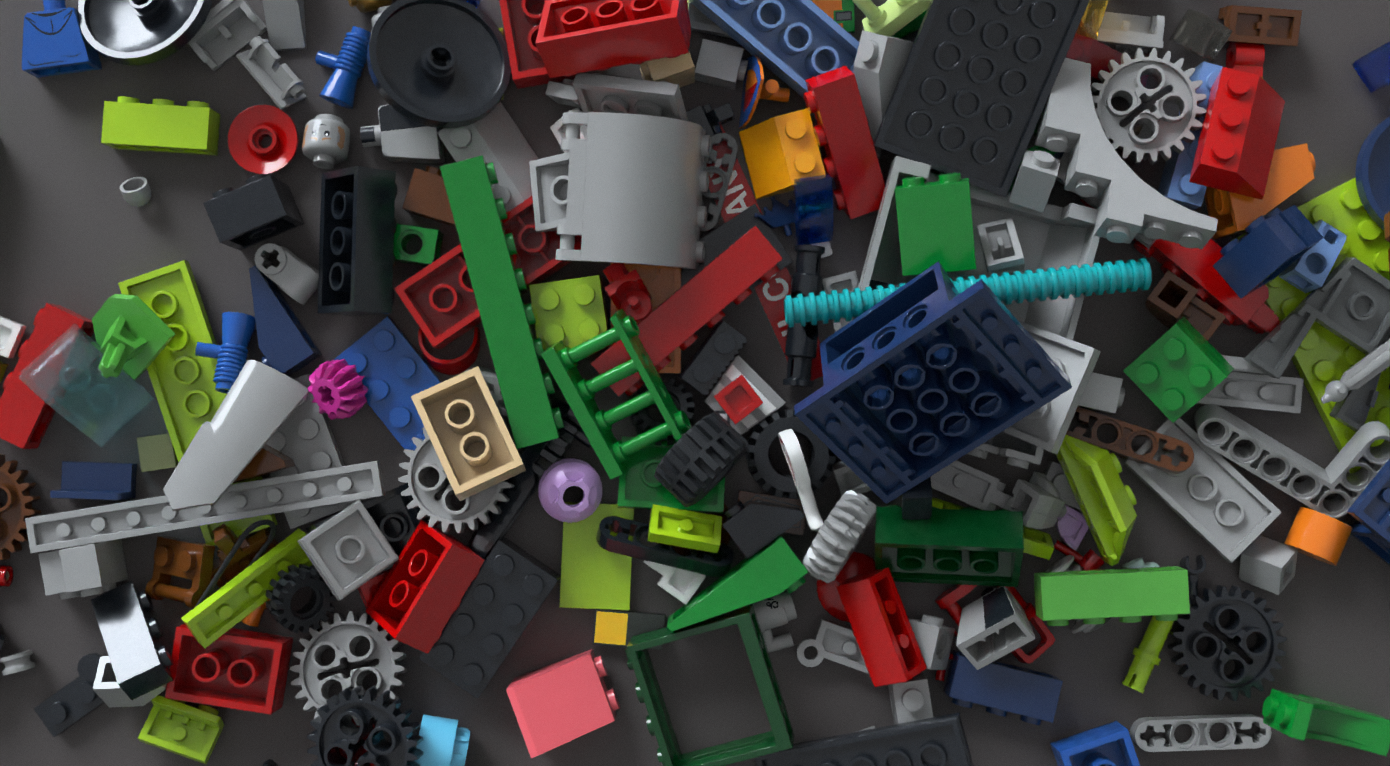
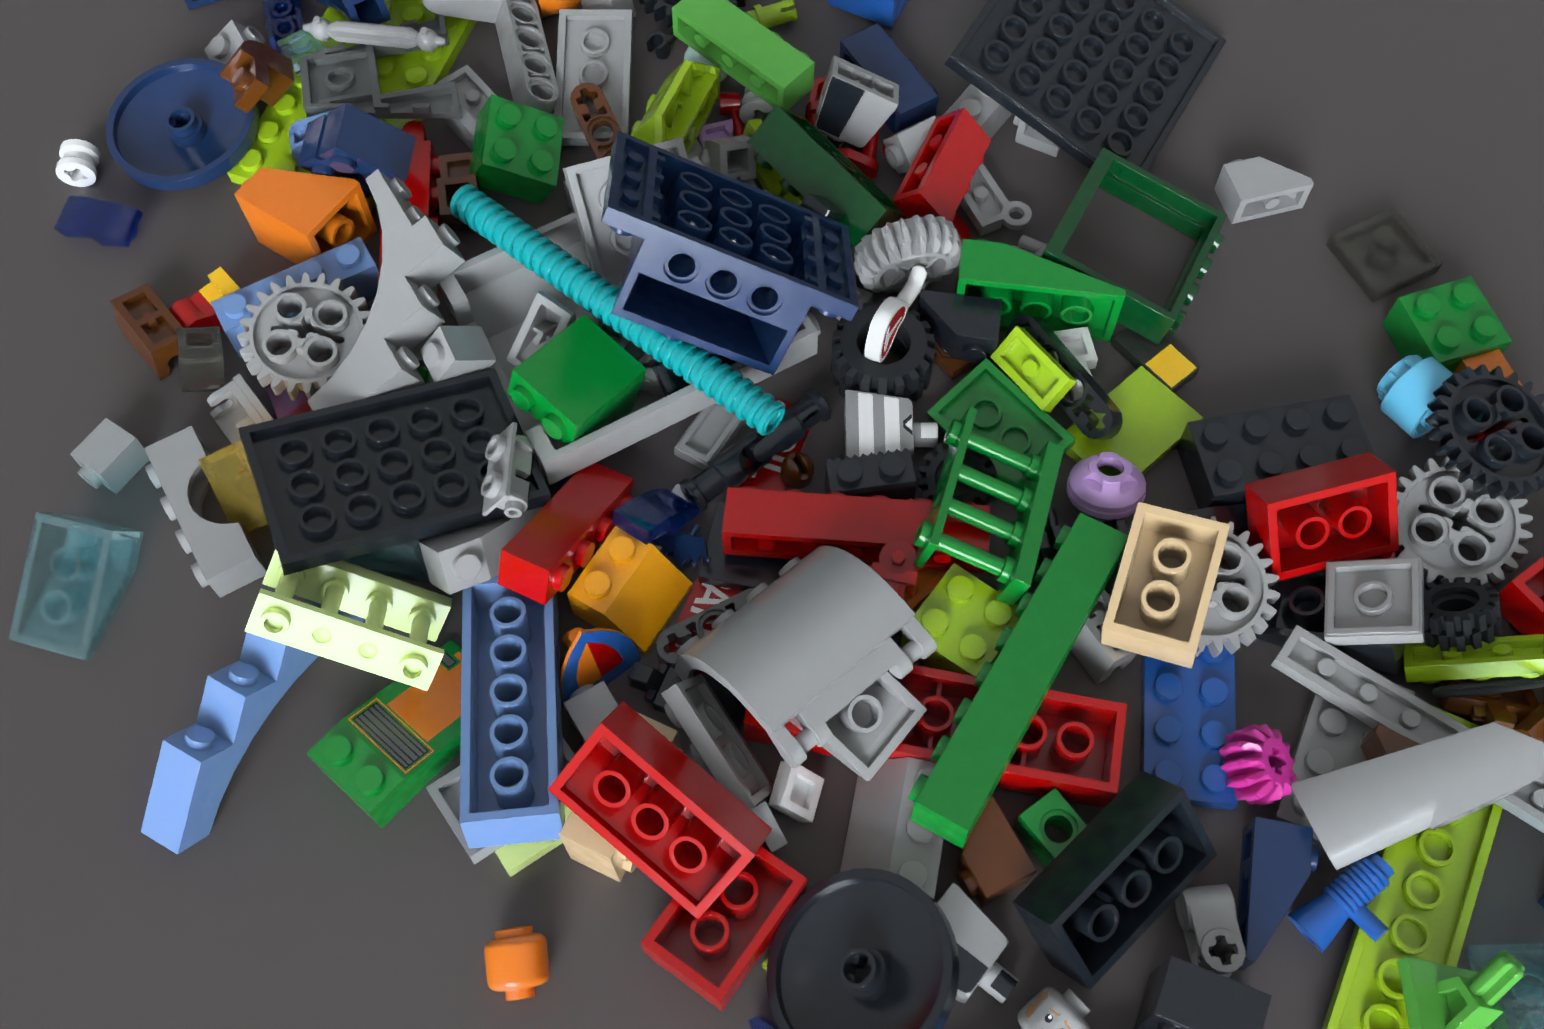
camera: 135 degrees left, 25 degrees down
(156, 453) = (1506, 887): olive tile -> none
(456, 365) = (1121, 693): red helmet -> none
(562, 701) = (1270, 341): coral slope -> none
(700, 459) = (967, 377): black tyre -> none
(738, 399) = (884, 417): red plate -> none
(767, 338) = (790, 473): none -> reddish brown hinge
(920, 135) = (507, 457): none -> light grey hinge
(1238, 134) = (275, 241): red slope -> none

